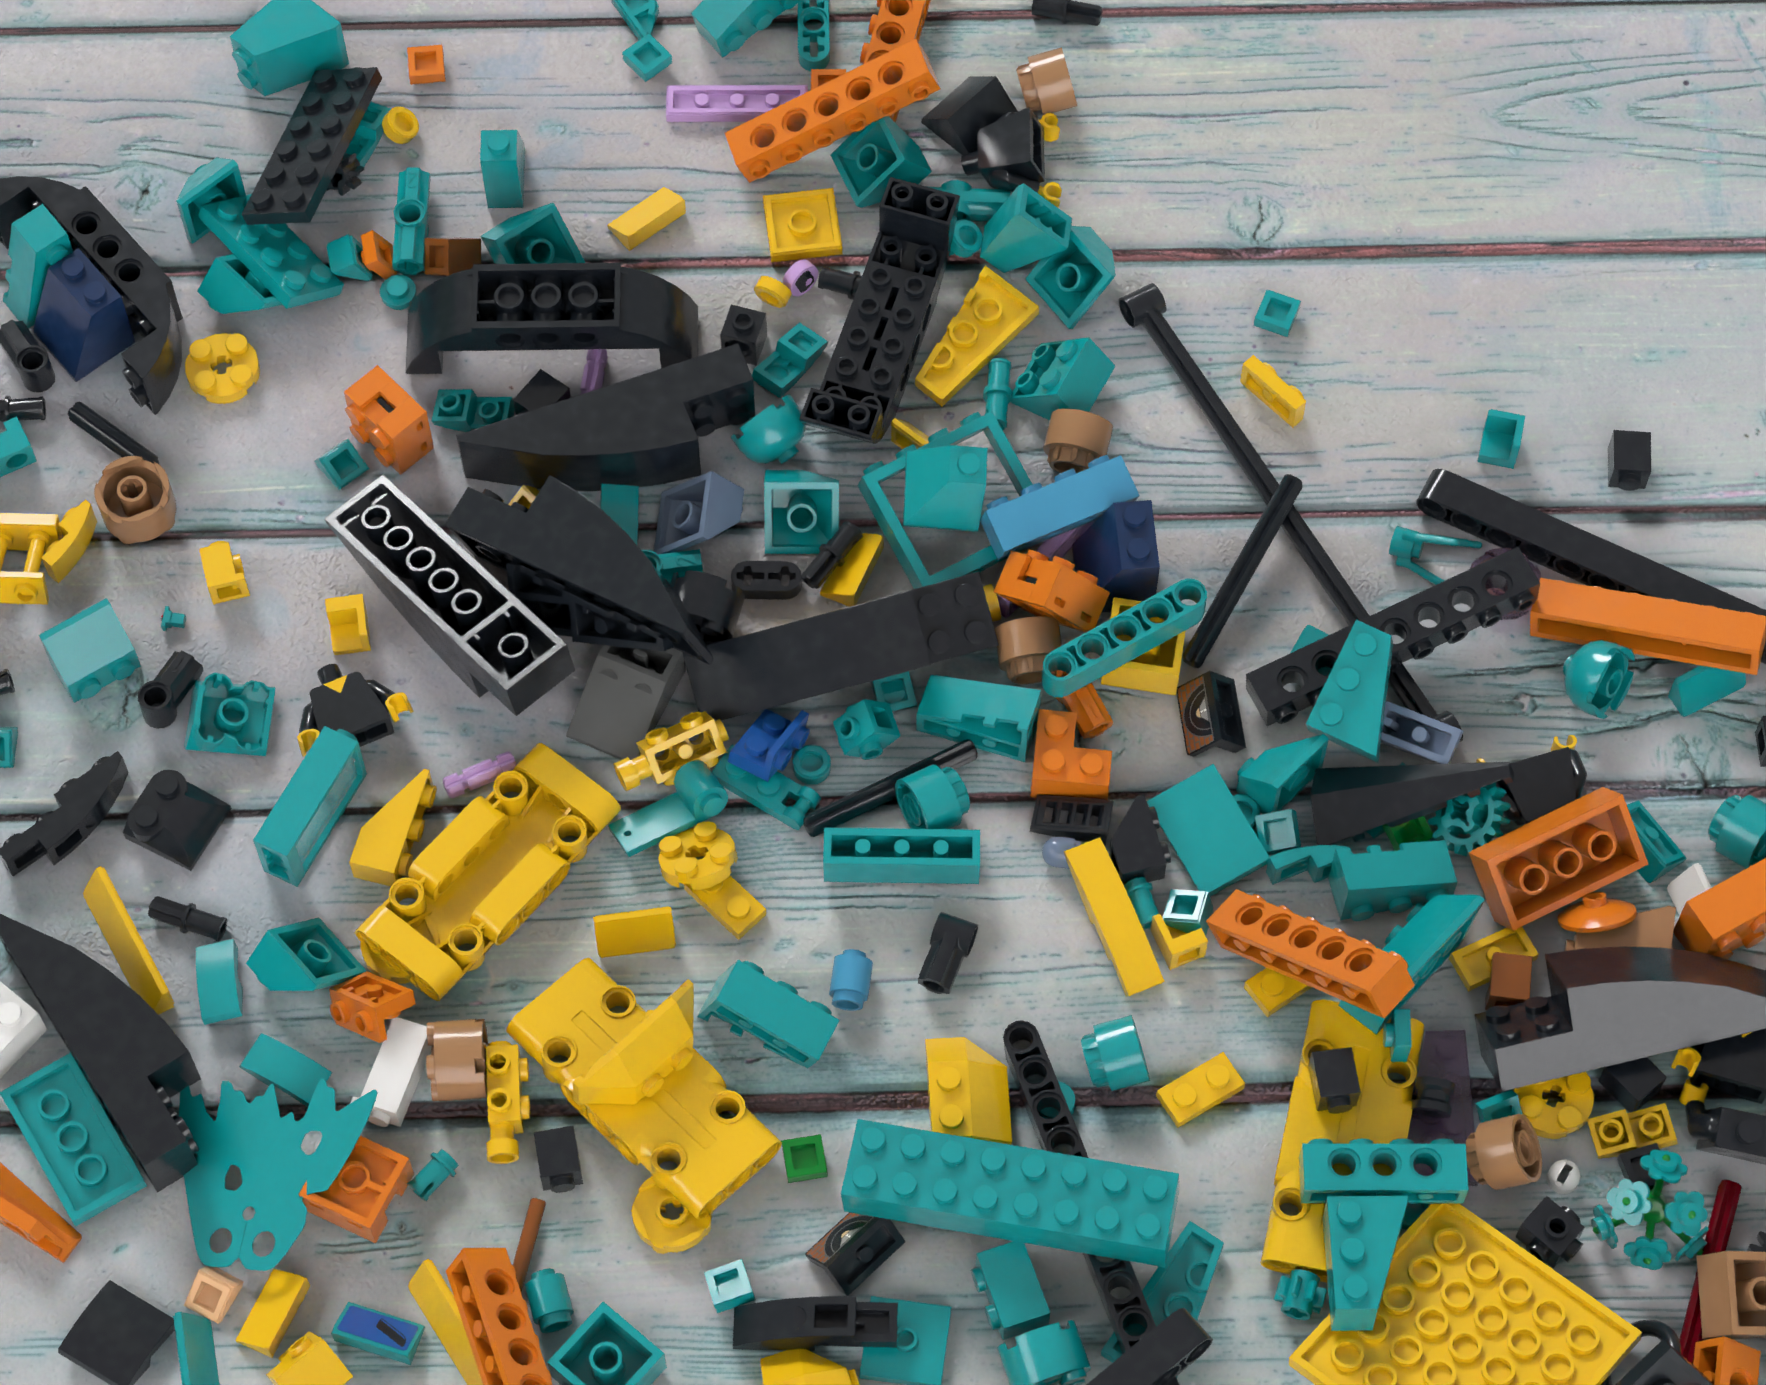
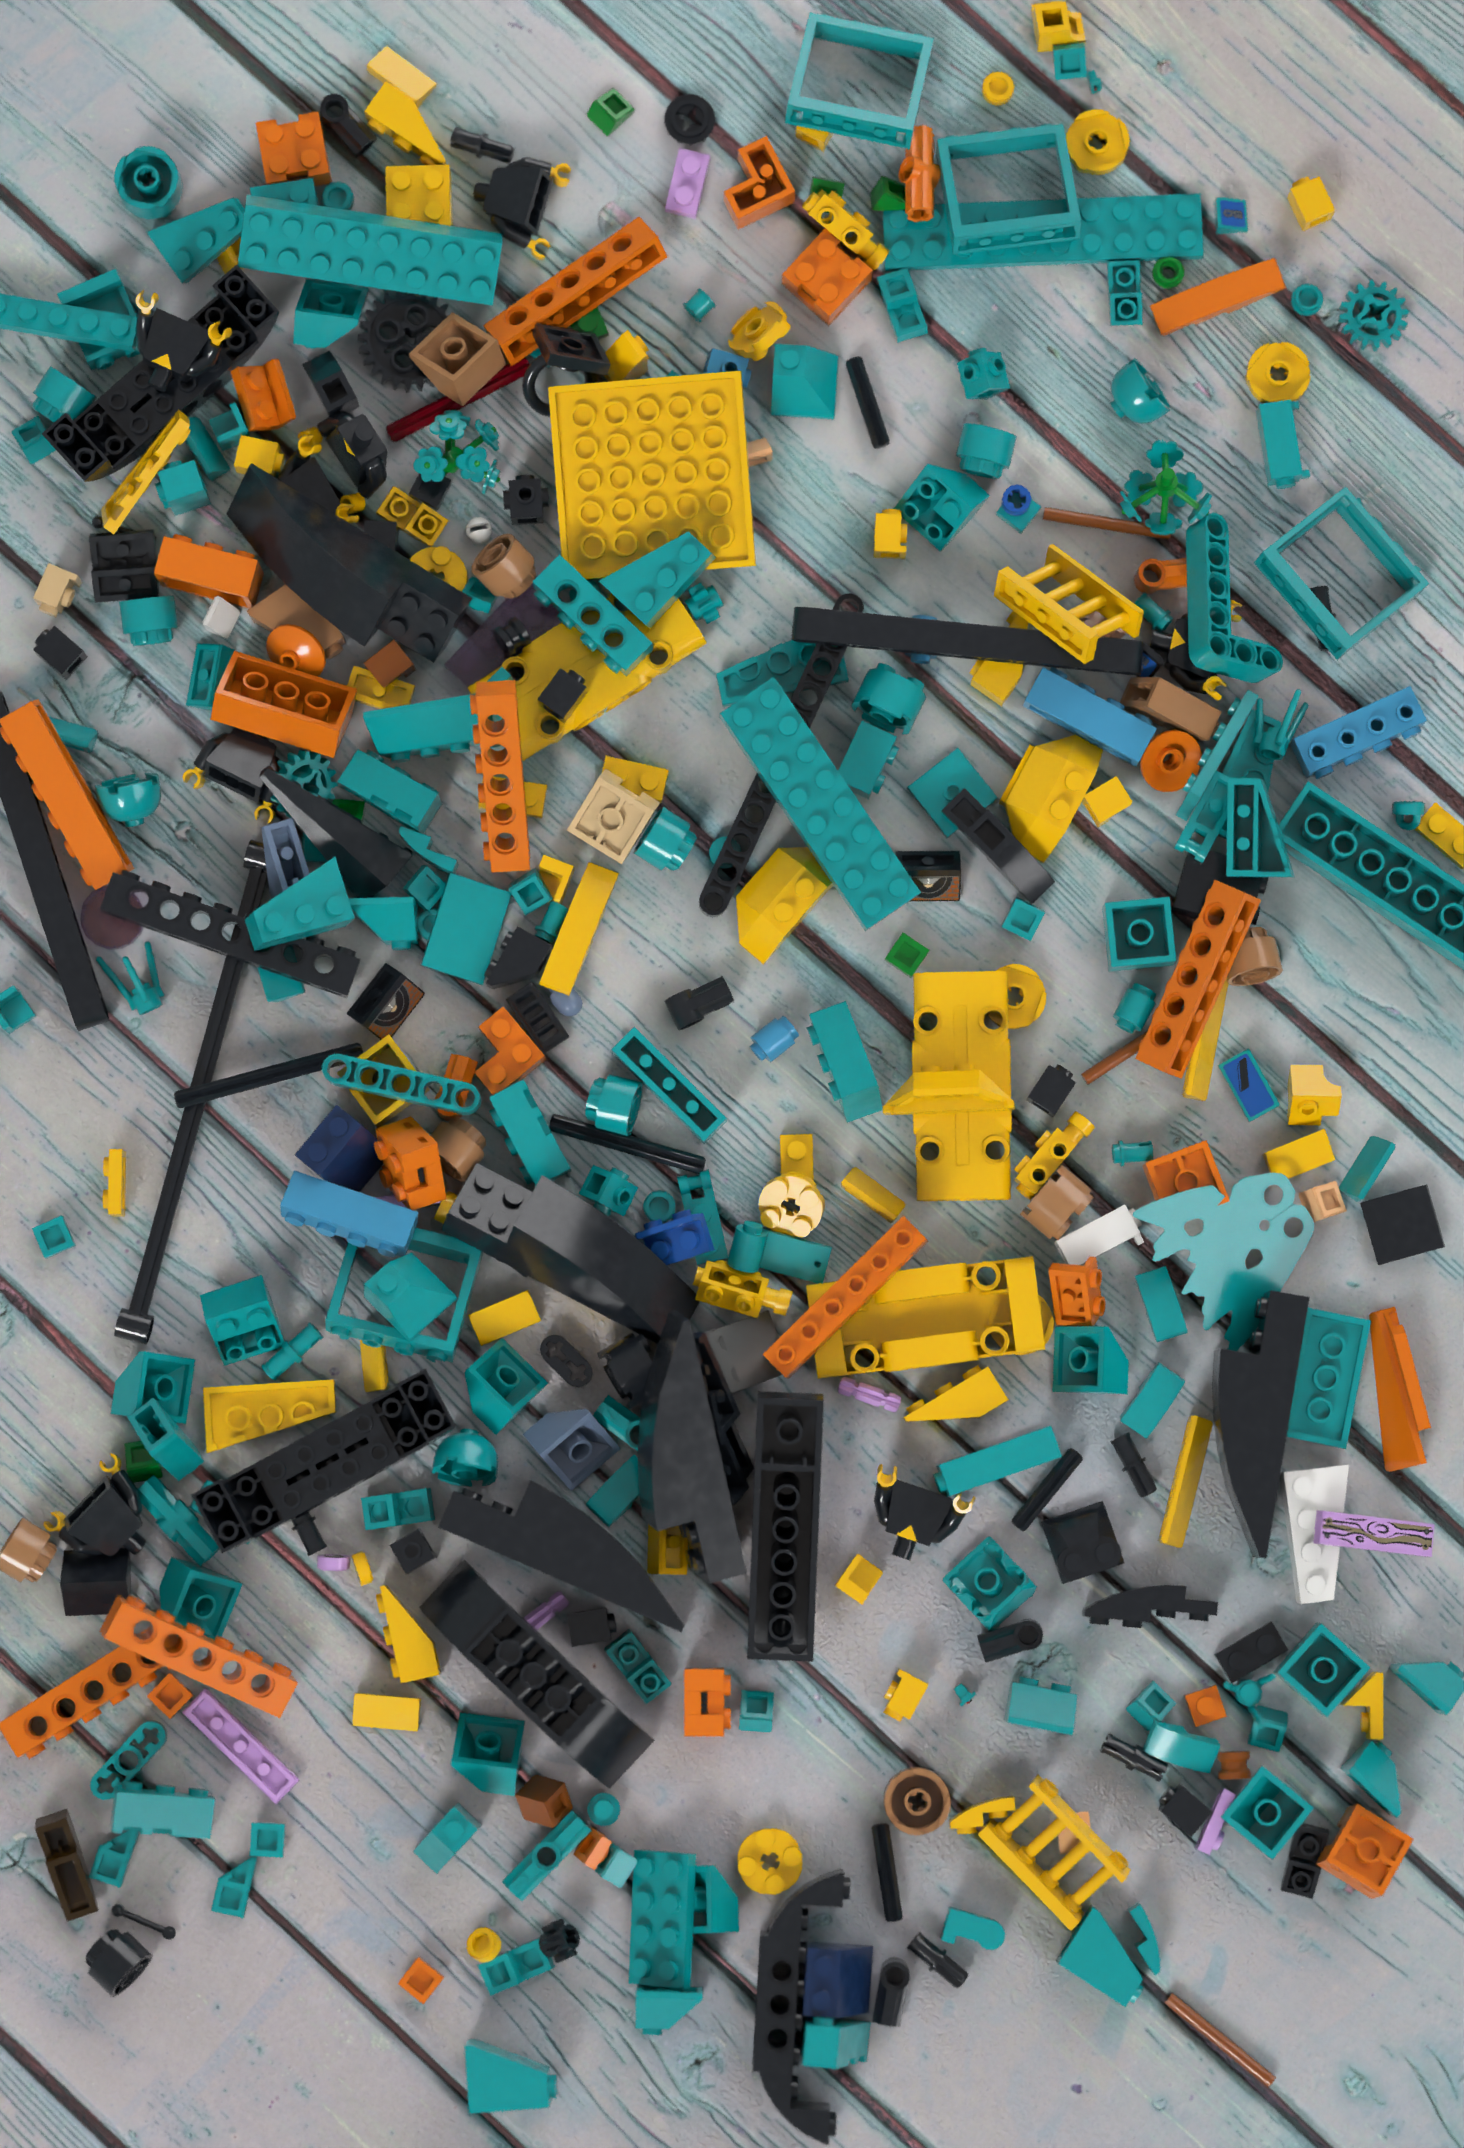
camera: 135 degrees left, 20 degrees up
(247, 828) = (1047, 1489): none -> black axle
(312, 146) = (564, 1972): black plate -> none
(572, 810) = (845, 1297): none -> orange brick
(688, 271) = (412, 1646): none -> yellow slope
(802, 225) = (289, 1606): yellow tile -> none
(831, 555) = (513, 1333): black axle -> none
(966, 239) = (199, 1478): teal tile -> none
(1076, 439) = (281, 1263): medium nougat piece -> none
(1182, 1027) = (612, 817): none -> tan piece

